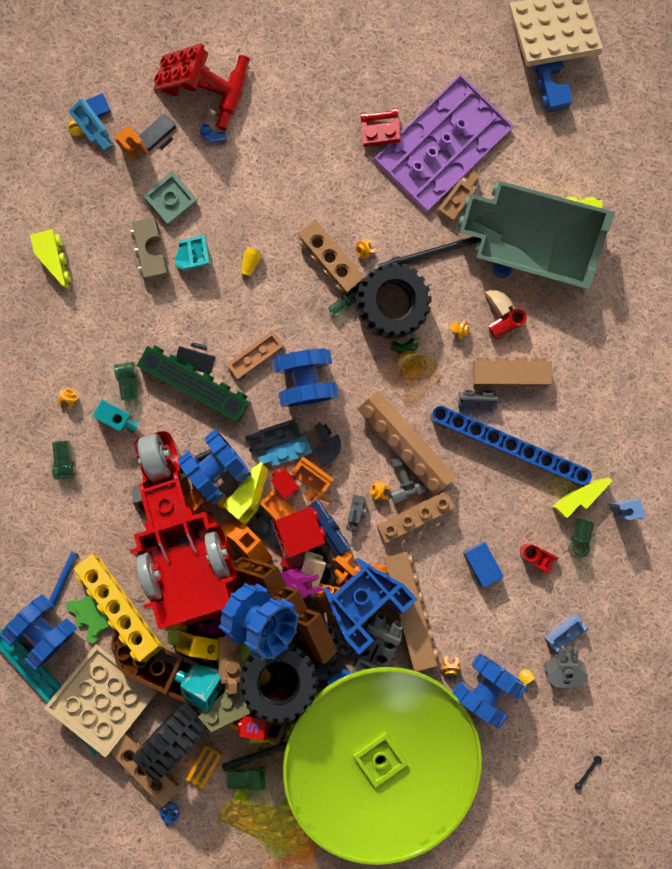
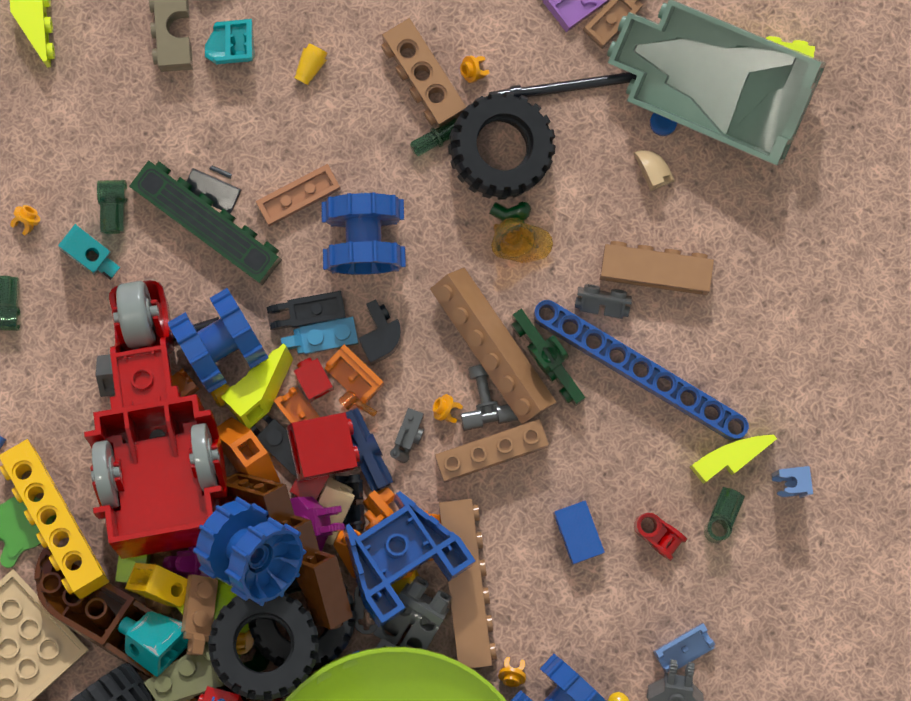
camera: 10 degrees right, 5 degrees down
(446, 445) = (549, 357): none -> dark green plate
(461, 329) = (594, 199): light orange plate -> none
(506, 324) = (657, 200): red piece -> none

